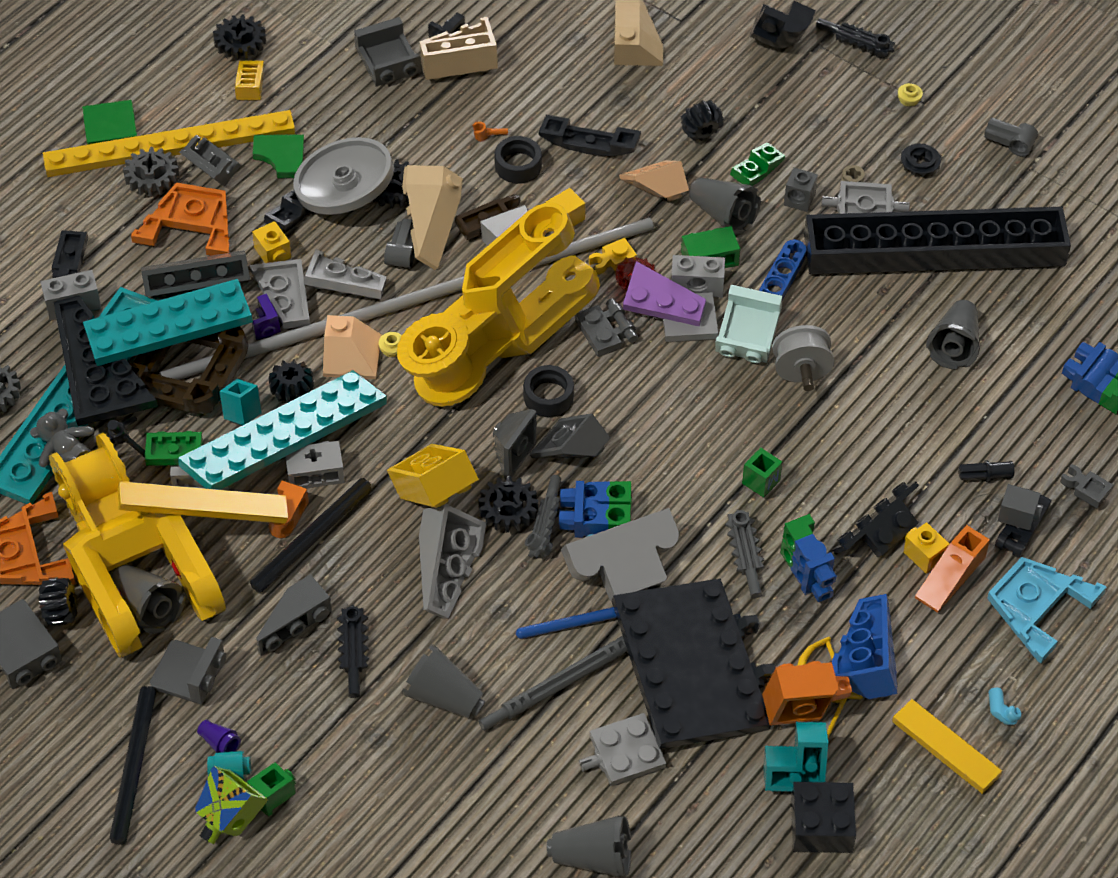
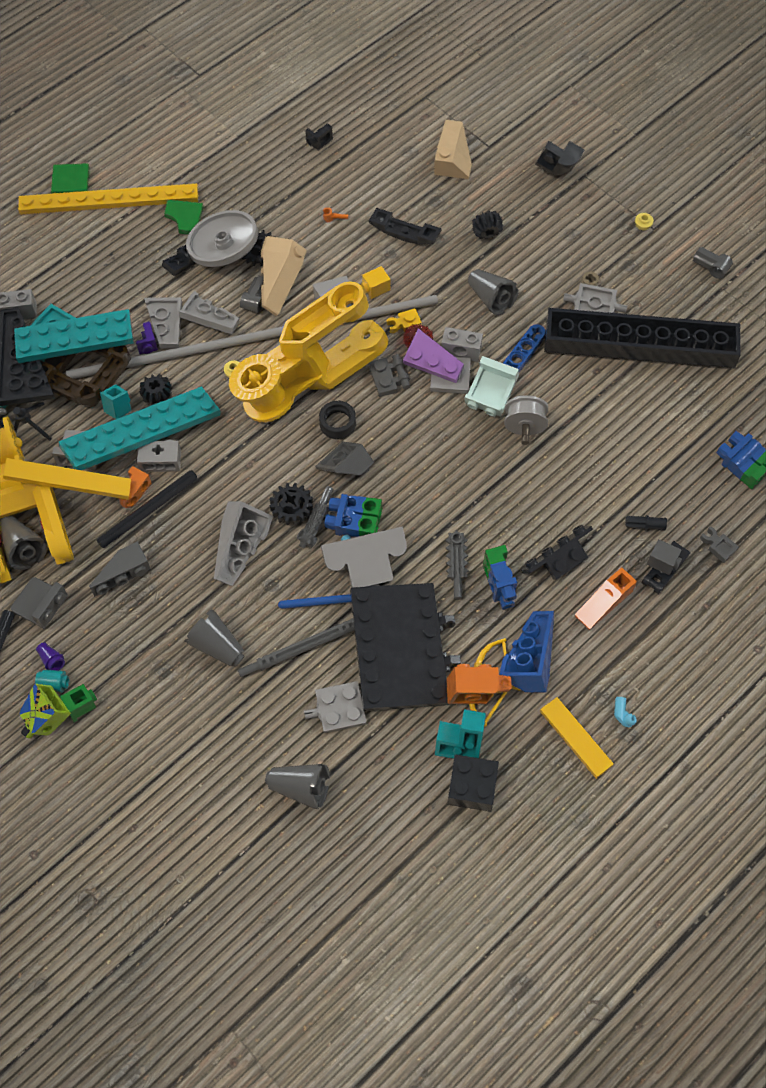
camera: 10 degrees right, 10 degrees up
(69, 253) = (21, 274): black hinge -> none
(151, 171) = (90, 219): dark grey gear -> none
(167, 447) = (57, 429): green bracket -> none
(192, 210) = (114, 251): orange wing -> none
(194, 273) = (103, 299): dark grey brick -> none
(210, 159) = (133, 215): dark grey hinge -> none
(239, 37) = (172, 124): black gear -> none
(249, 80) = (176, 160): yellow slope -> none
(271, 243) = (163, 283): yellow brick -> none
(350, 347) = (203, 369): light nougat slope -> none
(353, 646) = (159, 600): black piece -> none
(386, 52) = (273, 147): dark grey panel -> none
(433, 475) = (238, 477): yellow brick -> none
(460, 52) = (323, 153): tan wedge -> none
(470, 223) = (306, 282): dark brown hinge -> none
(515, 440) = (305, 456): dark grey slope -> none
(517, 145) = (350, 228): black tyre -> none
(660, 179) = (450, 266): light nougat slope -> none
(713, 243) = (477, 321): green brick -> none
(758, 166) = (525, 262): green slope -> none
(762, 472) = (479, 504): green brick -> none
(800, 189) = (549, 286): dark grey brick -> none
(879, 43) = (607, 169): black piece -> none
(914, 153) = (639, 267): black gear -> none
(924, 547) = (589, 577): yellow brick -> none
(955, 336) = (642, 414): dark grey cone -> none
(1029, 593) = (659, 625): medium azure wing -> none

